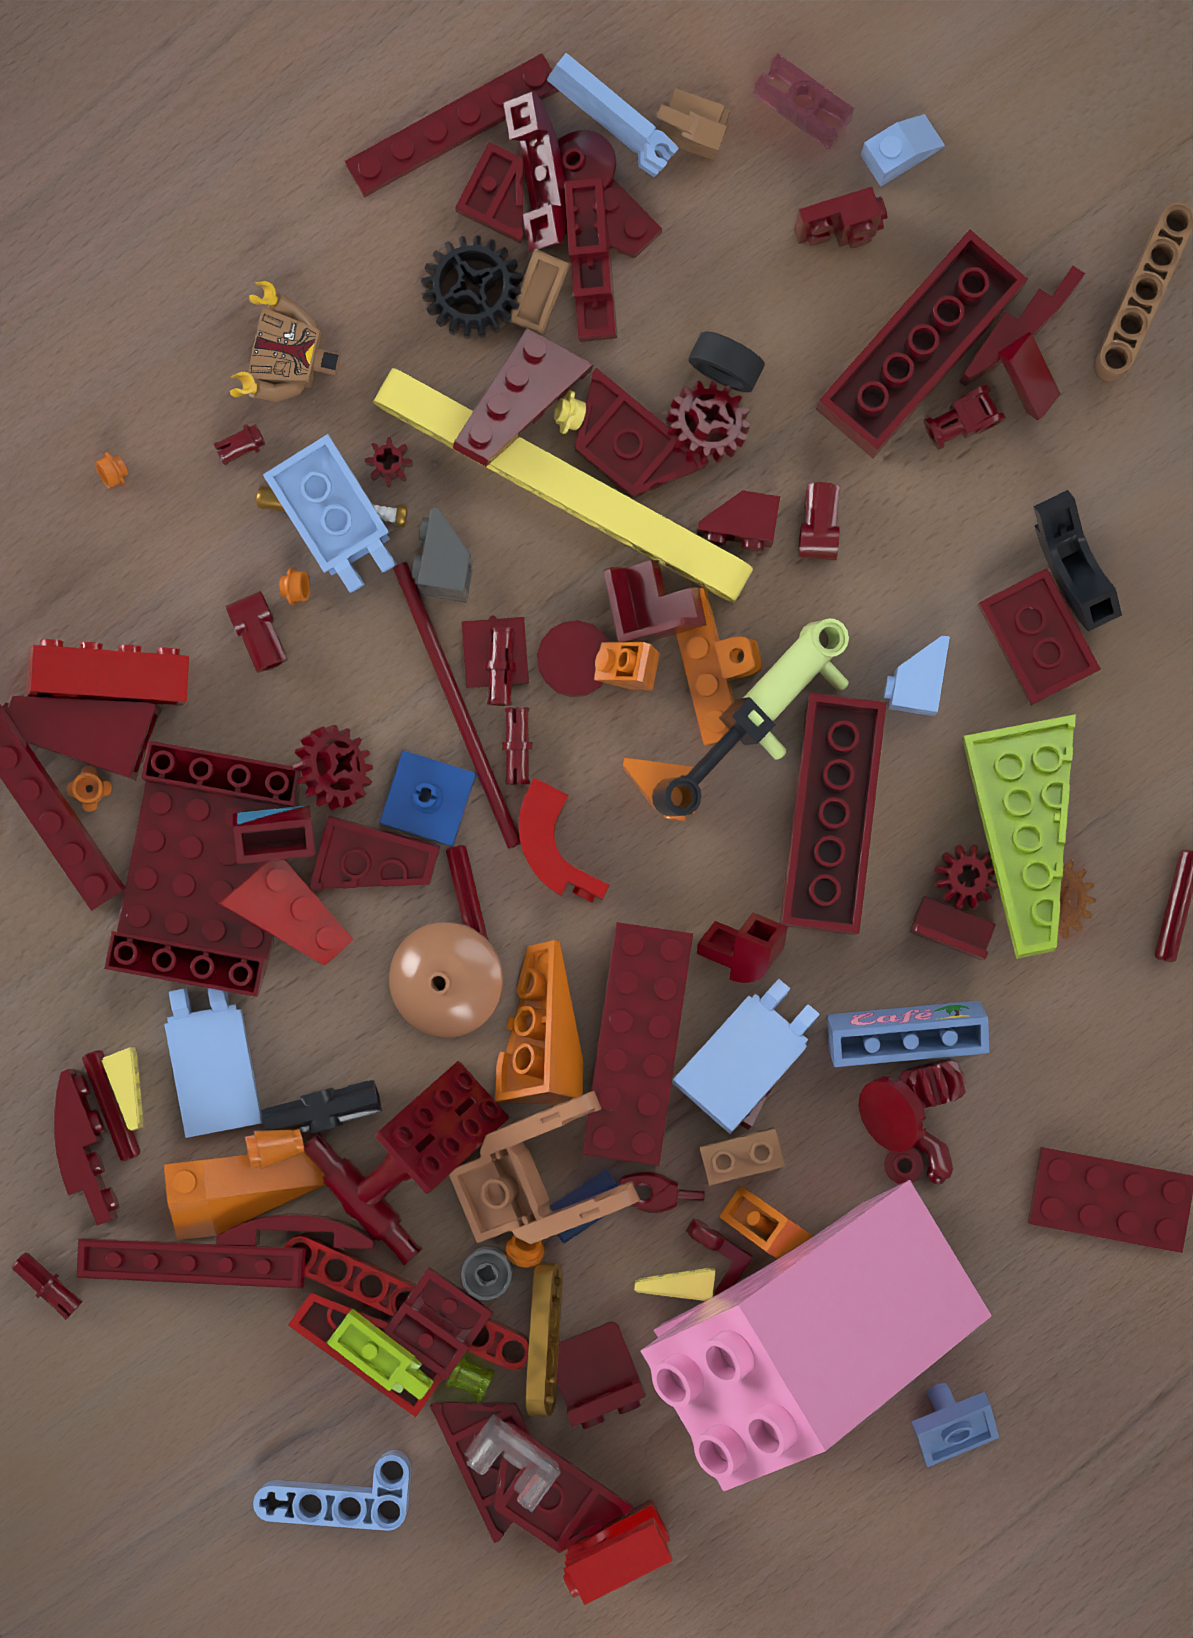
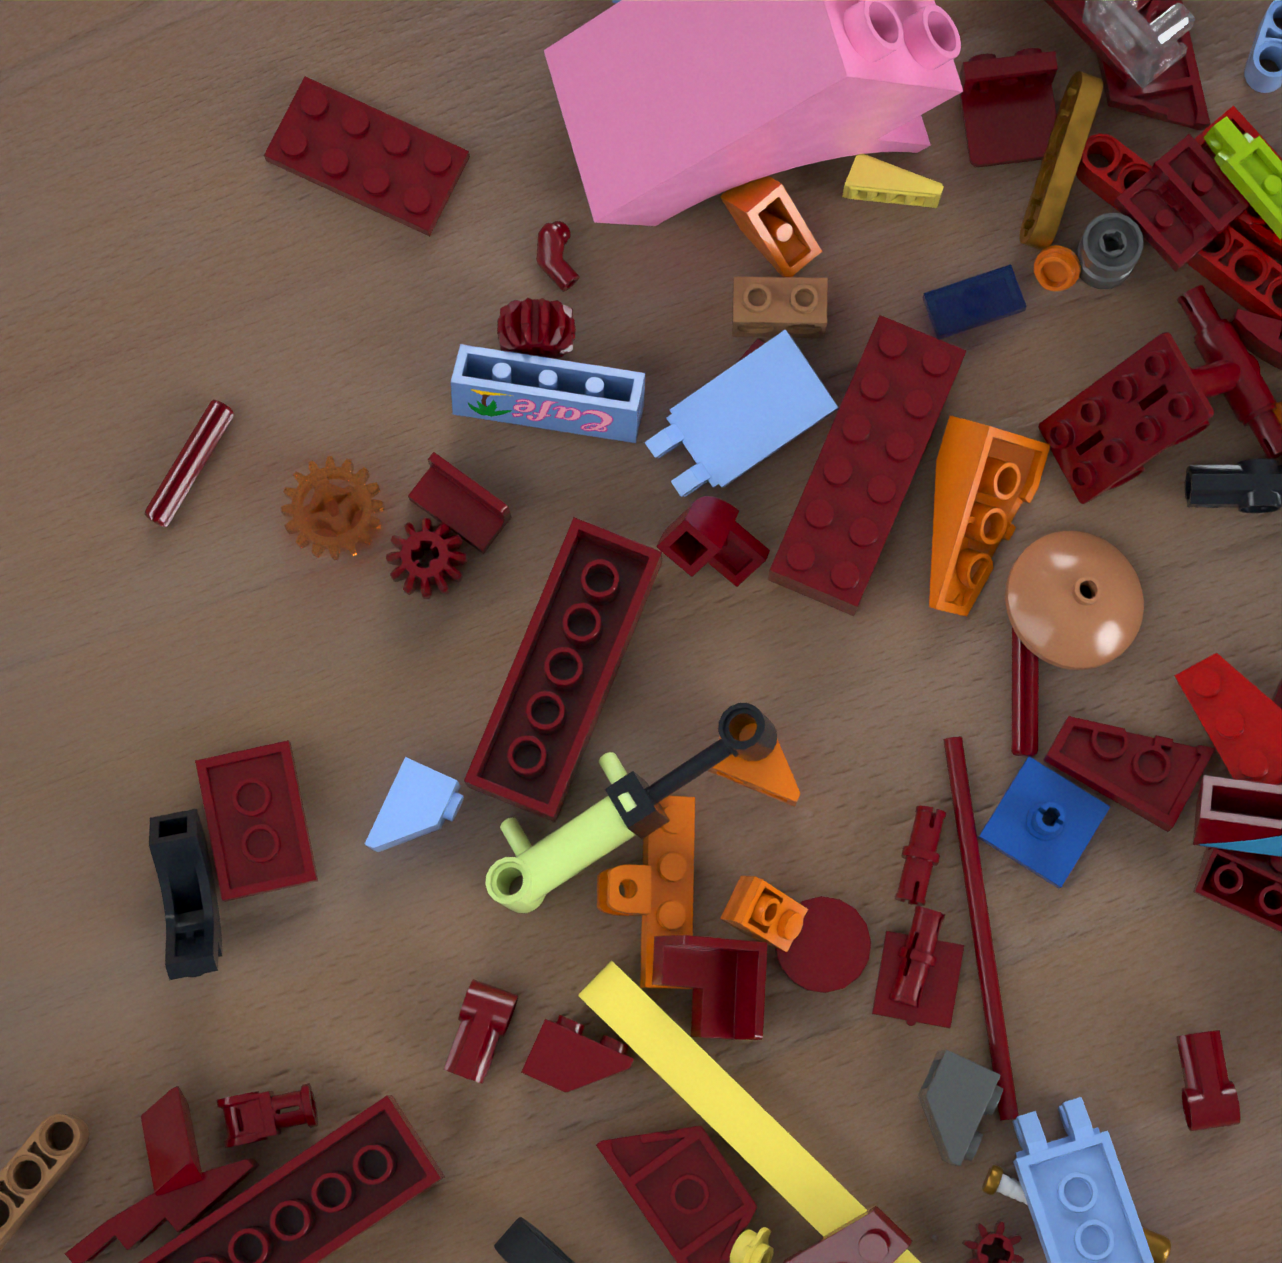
camera: 165 degrees left, 5 degrees down
(295, 586) = (1146, 1125): orange plate -> none
(333, 767) = (1153, 884): dark red gear -> none
(470, 1379) = (1151, 139): clear neon green bush -> none
(506, 1191) = (1062, 334): nougat plate -> none
(537, 837) = (923, 721): red arch -> none
(664, 1192) = (879, 293): dark red hand -> none
(714, 405) = (596, 1208): dark red gear -> none
(716, 1242) = (835, 224): dark red piece -> none
(892, 1114) = (592, 306): dark red tile -> none
(916, 1166) = (598, 265): dark red plate -> none
(1023, 805) = (335, 620): lime wing -> none

